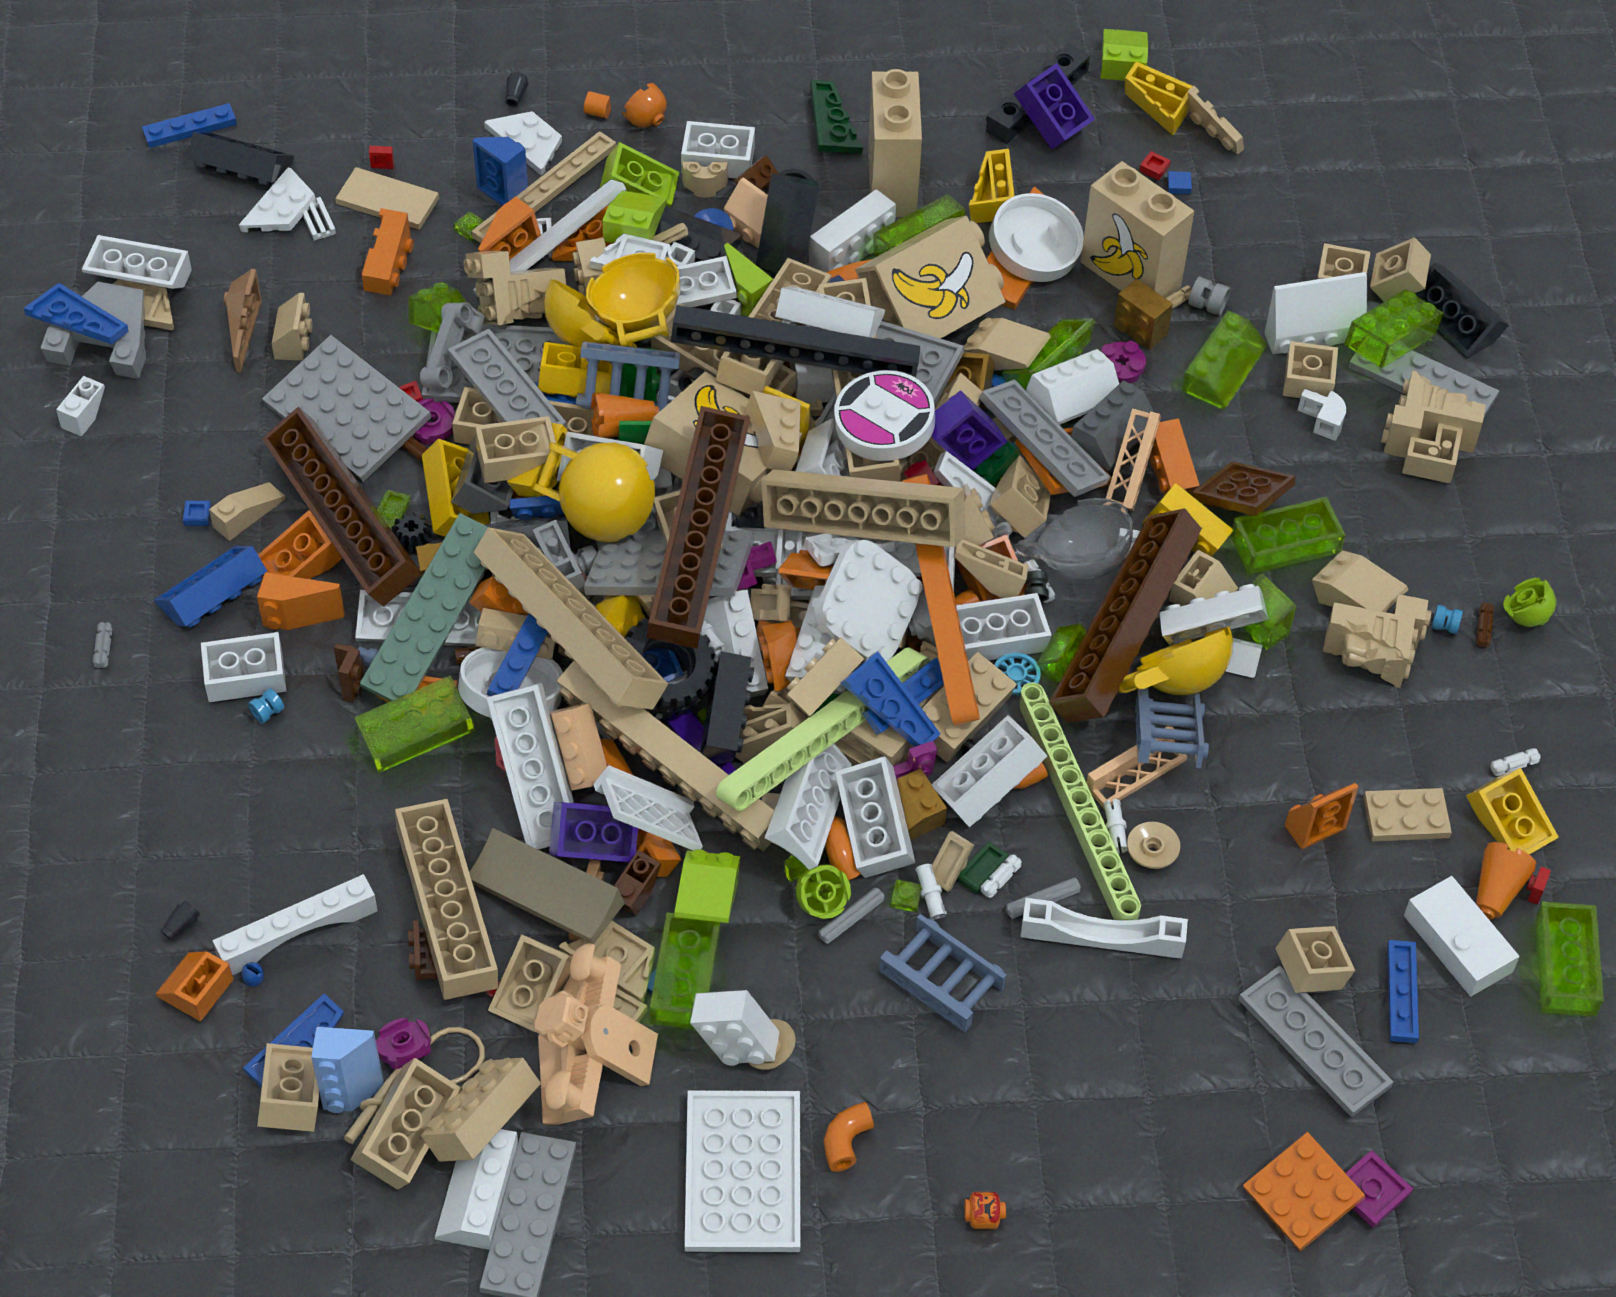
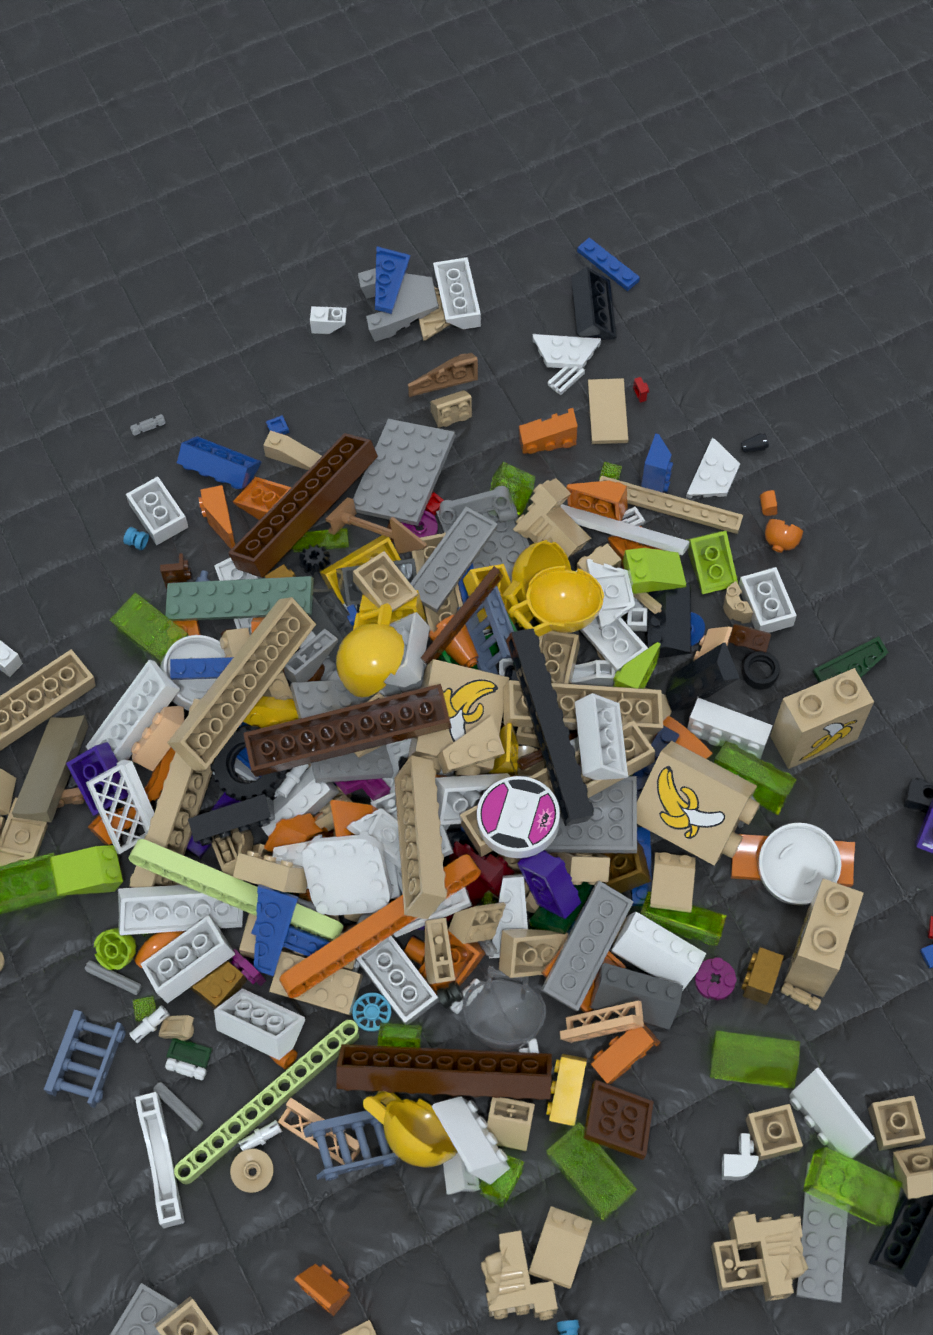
camera: 70 degrees right, 10 degrees up
(451, 421) = (403, 537): none -> medium nougat piece
(610, 378) = (462, 616): none -> reddish brown tile
(638, 882) = (73, 823): reddish brown slope -> none
(993, 186) = (841, 814): yellow wedge -> none
(1217, 298) = (815, 1022): light grey wheel -> none

